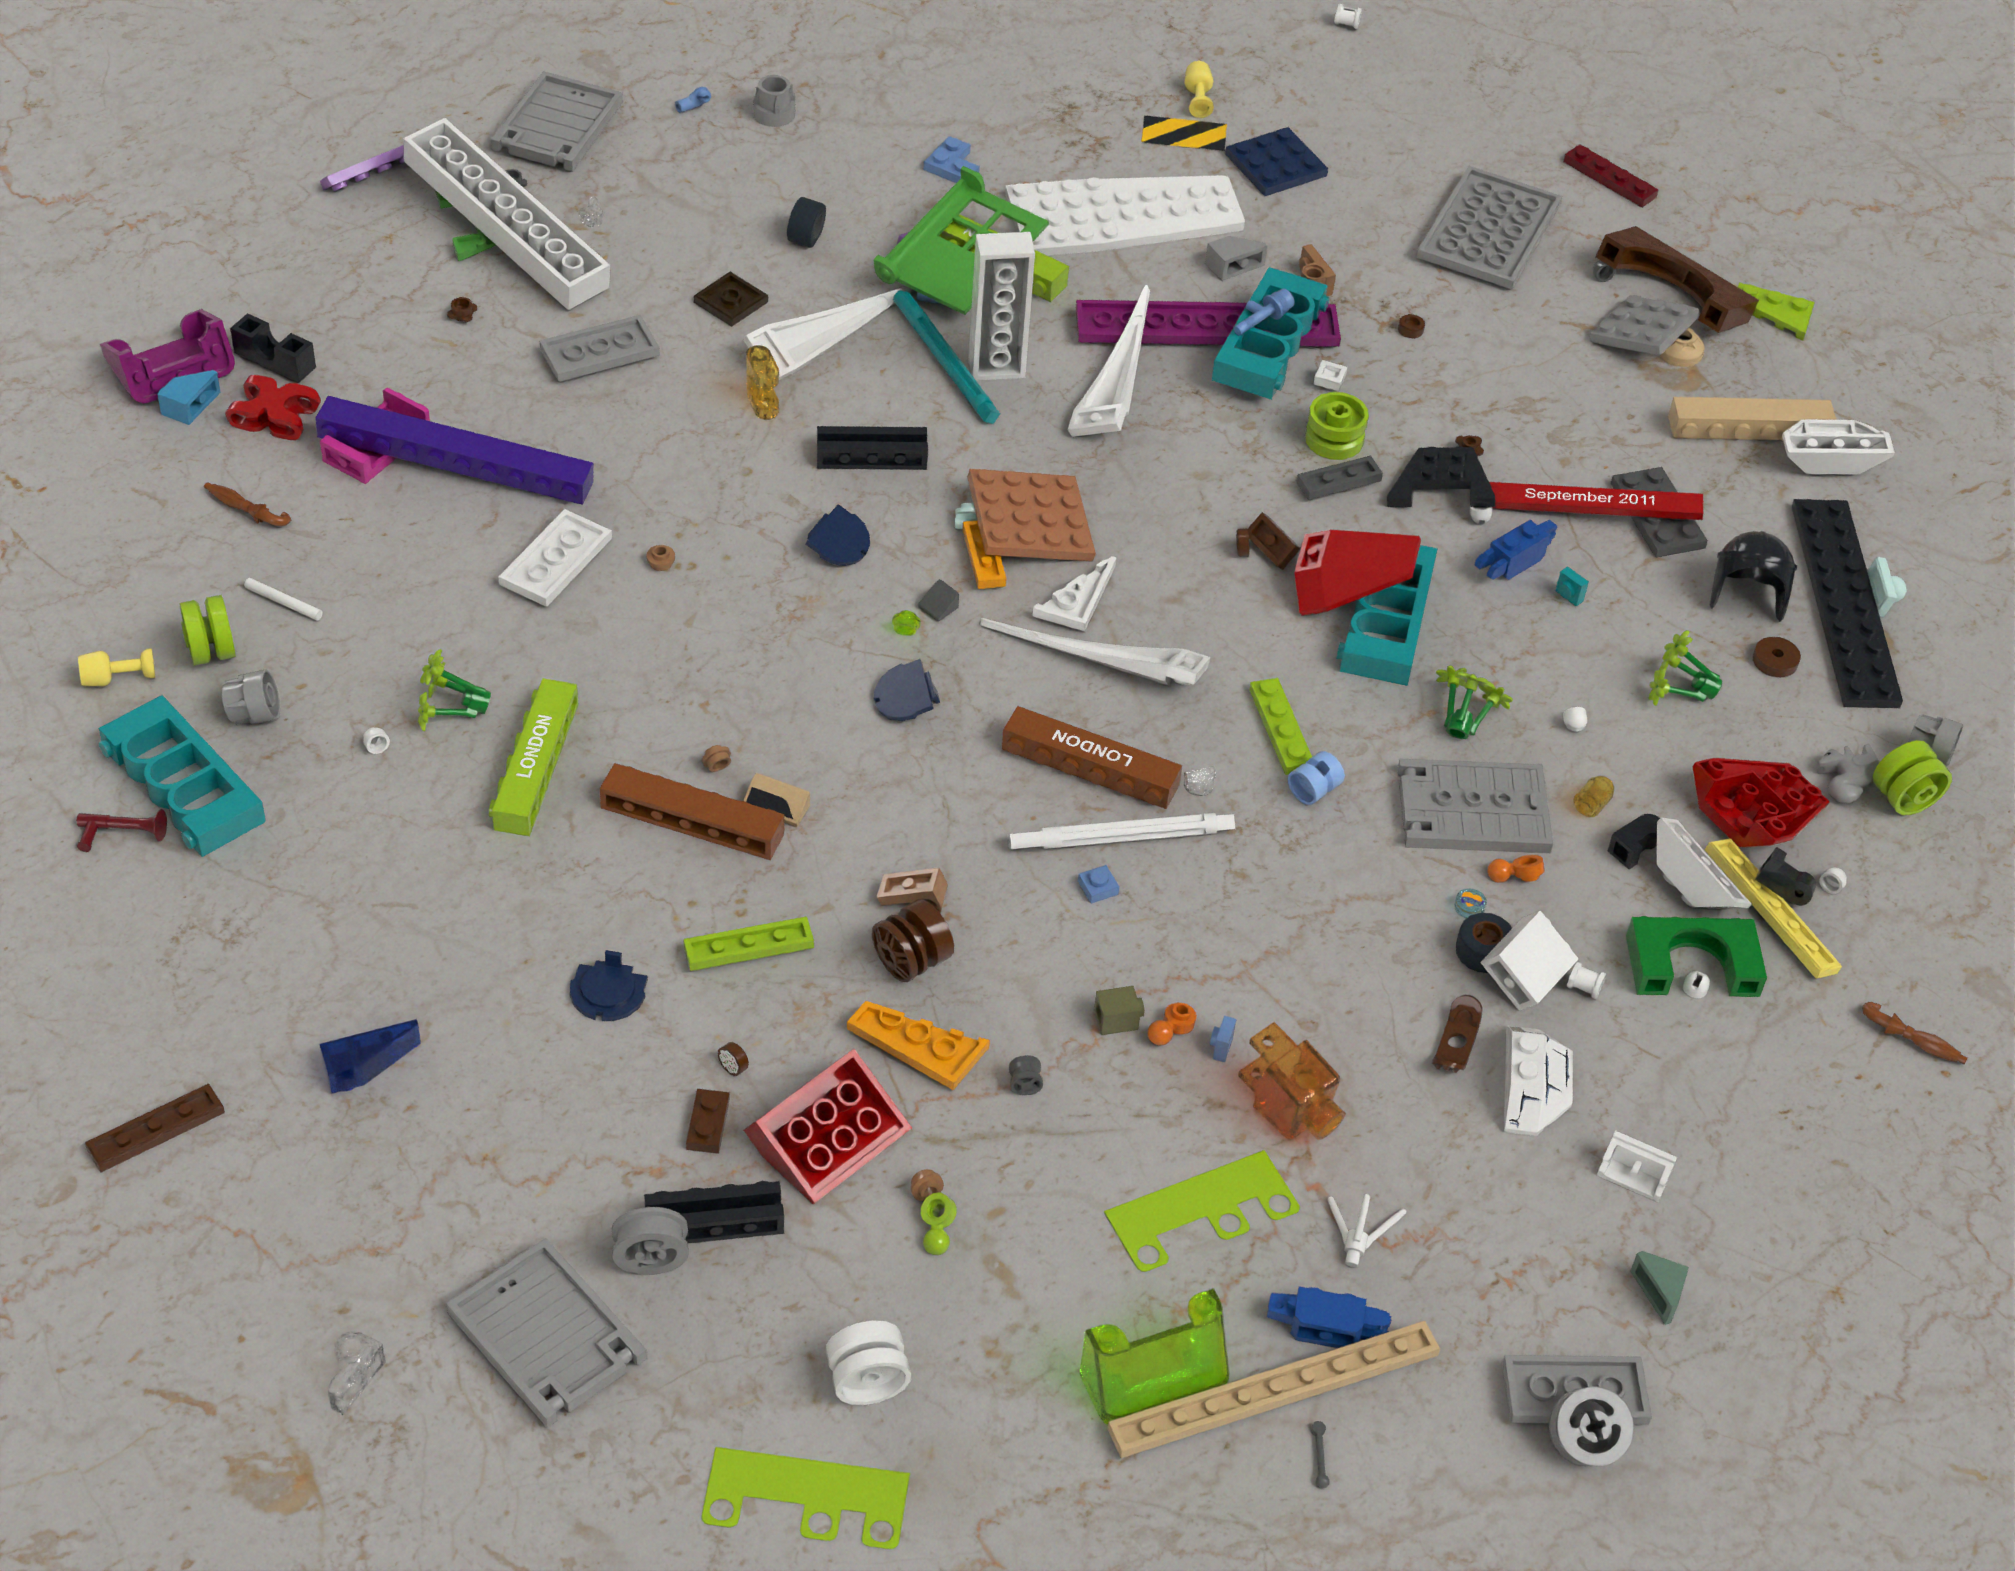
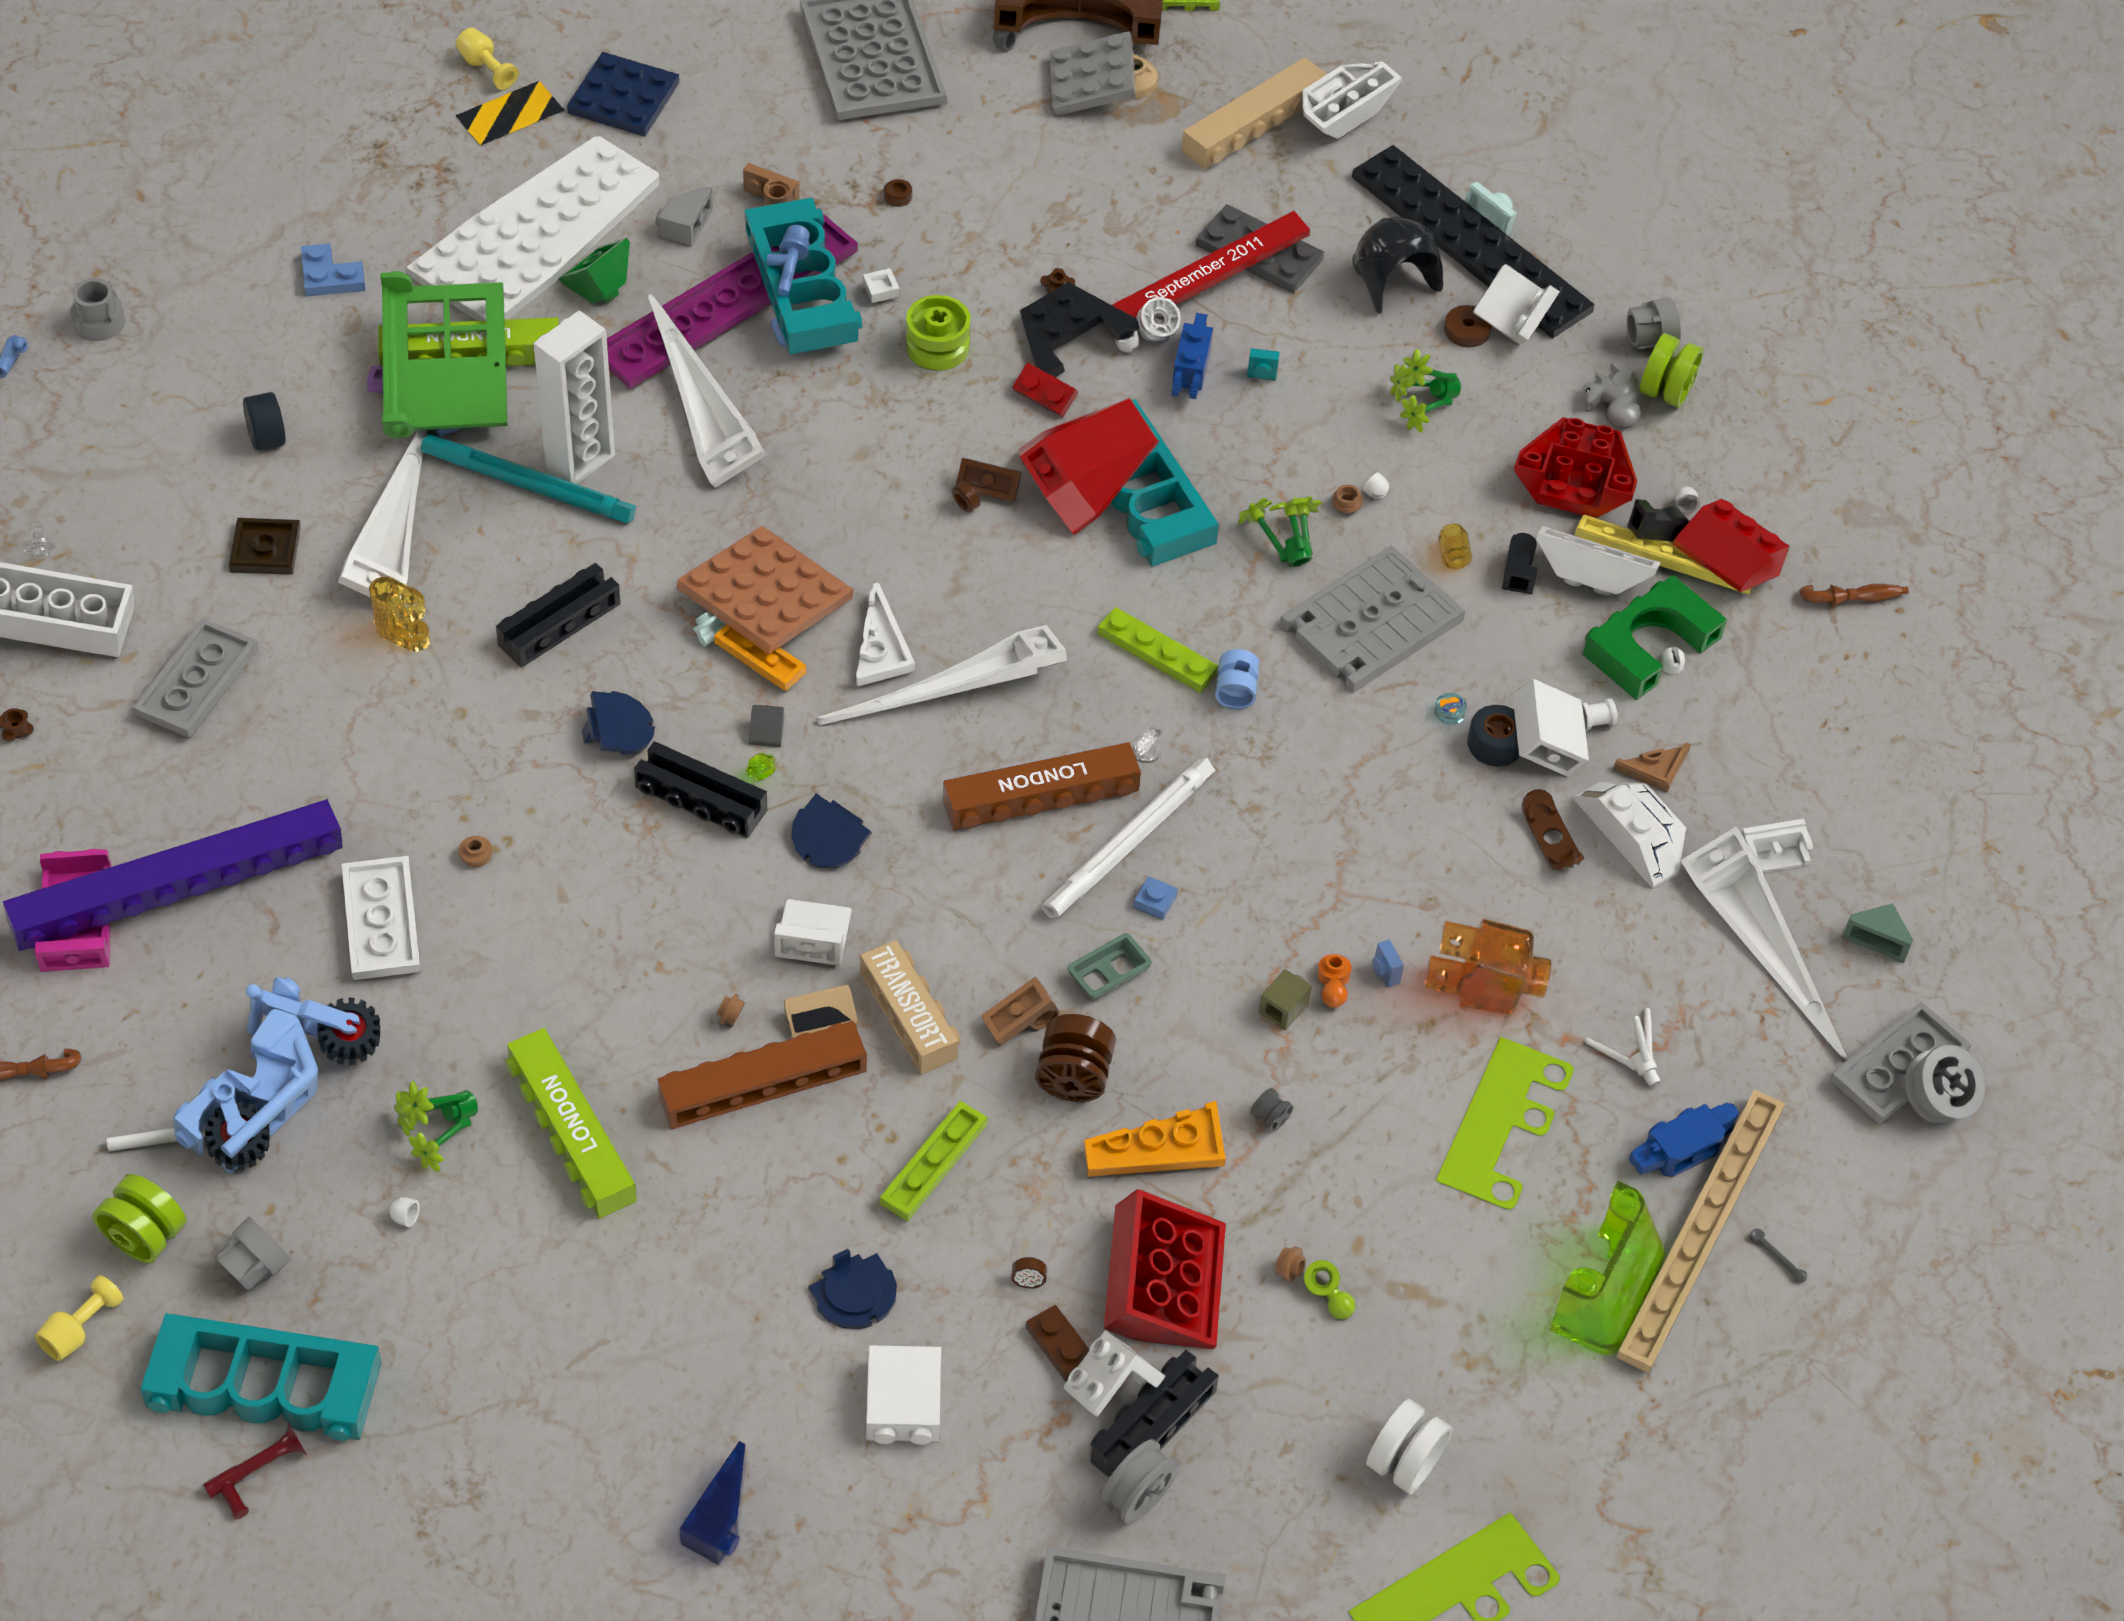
camera: 40 degrees left, 5 degrees up
(386, 609) = (284, 1072): none -> light blue piece
(561, 1073) = (903, 1394): none -> white brick
(727, 1149) = (1105, 1370): none -> white bracket
(824, 747) = (812, 932): none -> white bracket
(839, 836) = (909, 1006): none -> tan brick
(848, 612) = (701, 789): none -> black brick
(1012, 898) = (1100, 960): none -> sand green piece
(1132, 258) = (600, 272): none -> green slope
(1339, 477) = (983, 381): dark grey plate -> none
(1380, 508) = (1045, 389): none -> red plate
(1510, 501) = (1162, 309): none -> white wheel
(1525, 867) = (1463, 646): orange plate -> none
(1542, 714) = (1347, 499): none -> medium nougat plate
(1567, 1175) = (1739, 892): none -> white plate
(1601, 1050) = (1655, 767): none -> medium nougat tile
(1824, 657) = (1514, 304): none -> white bracket
(1830, 931) = (1732, 546): none -> red slope

